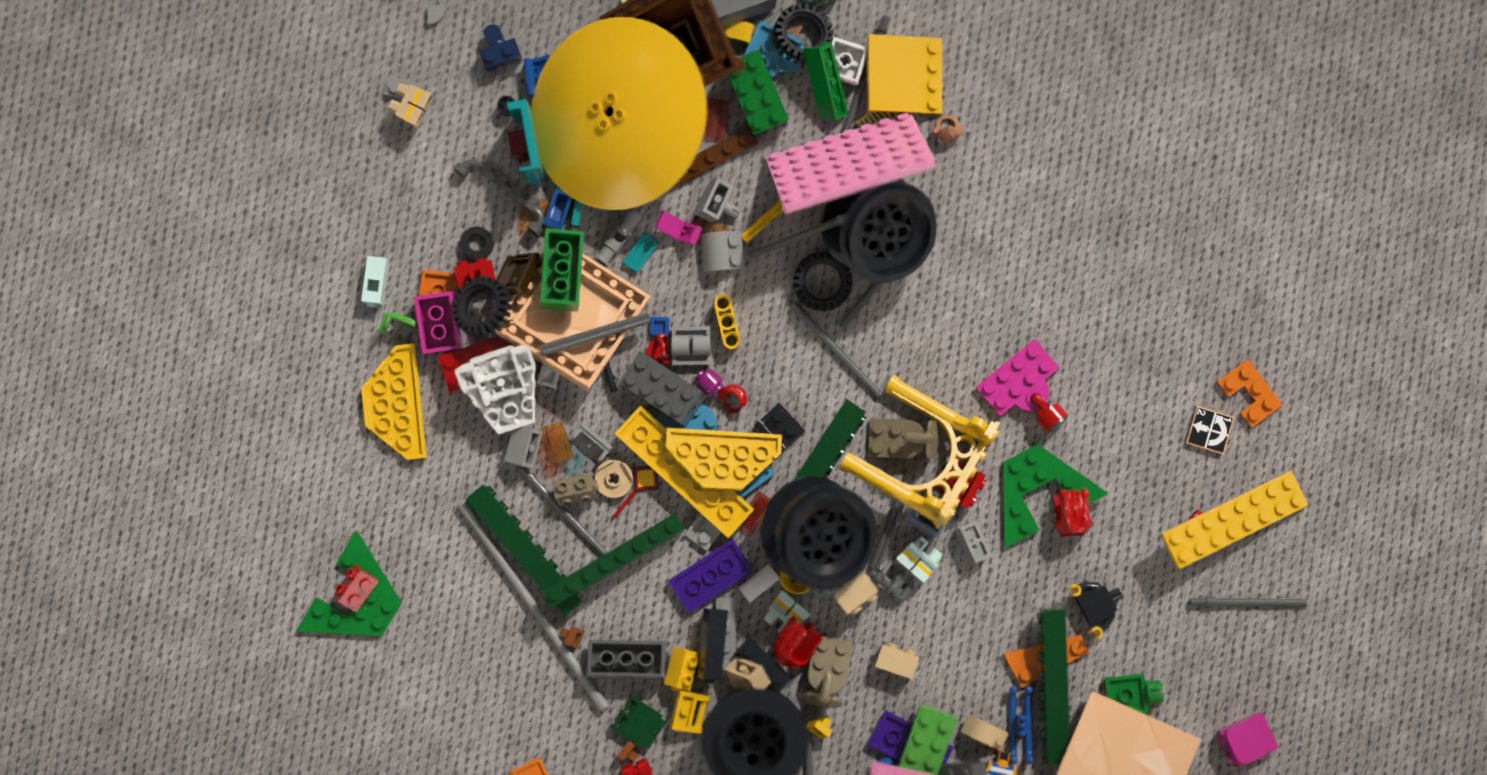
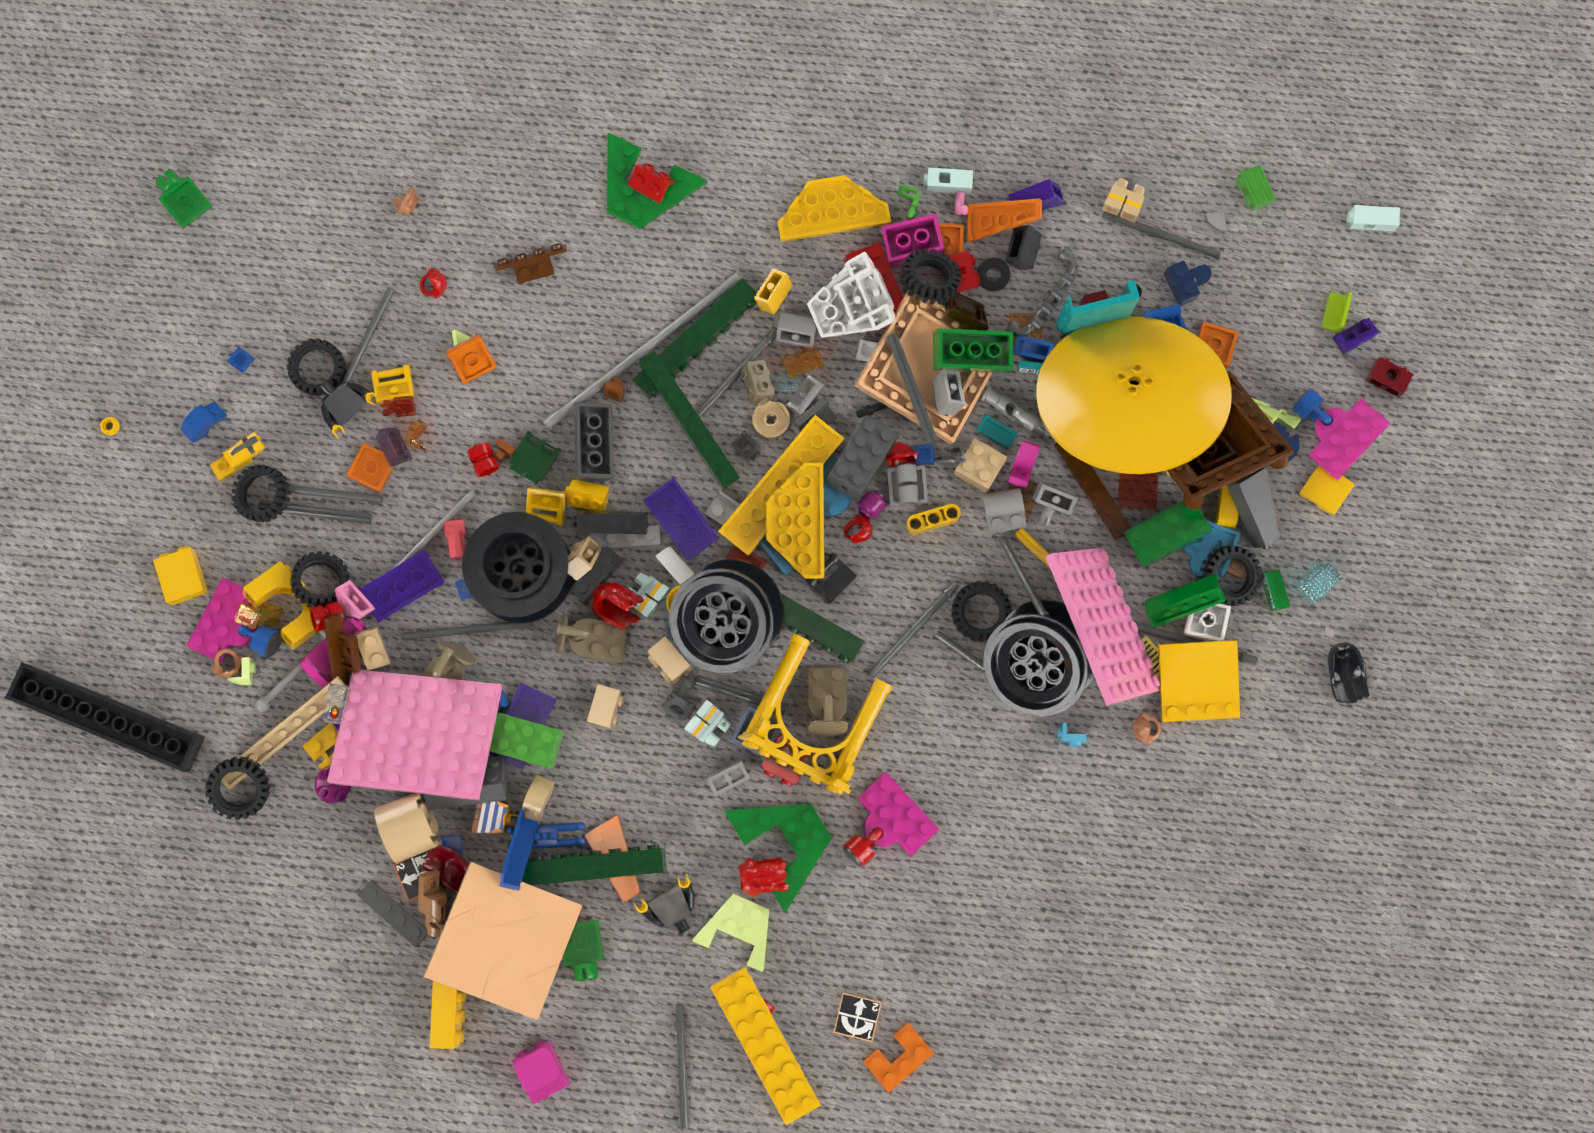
camera: 85 degrees right, 5 degrees down
(400, 194) = (1046, 191): none -> dark purple slope
(404, 272) = (960, 208): none -> bright pink arm
(419, 233) = (997, 217): none -> orange wing
(433, 714) = (533, 265): none -> reddish brown bracket
(447, 67) = (1164, 235): none -> dark grey bar
(452, 210) = (1023, 247): none -> black brick
(481, 467) = (773, 291): none -> yellow brick
(562, 23) = (1219, 340): none -> orange tile
(601, 297) = (948, 392): none -> light grey brick
(608, 428) = (819, 409): none -> dark grey panel
(638, 512) = (747, 455): none -> clear smoke brick
(644, 479) = (770, 449): piece -> none
(667, 296) = (956, 456): none -> dark grey piece
(675, 271) = (981, 465): none -> tan brick
(820, 727) = (536, 634): yellow tile -> none
(954, 201) = (1073, 739): none -> medium azure bracket
(1039, 751) = (518, 852): none -> blue panel
(1113, 535) = (742, 920): none -> yellowish green wing

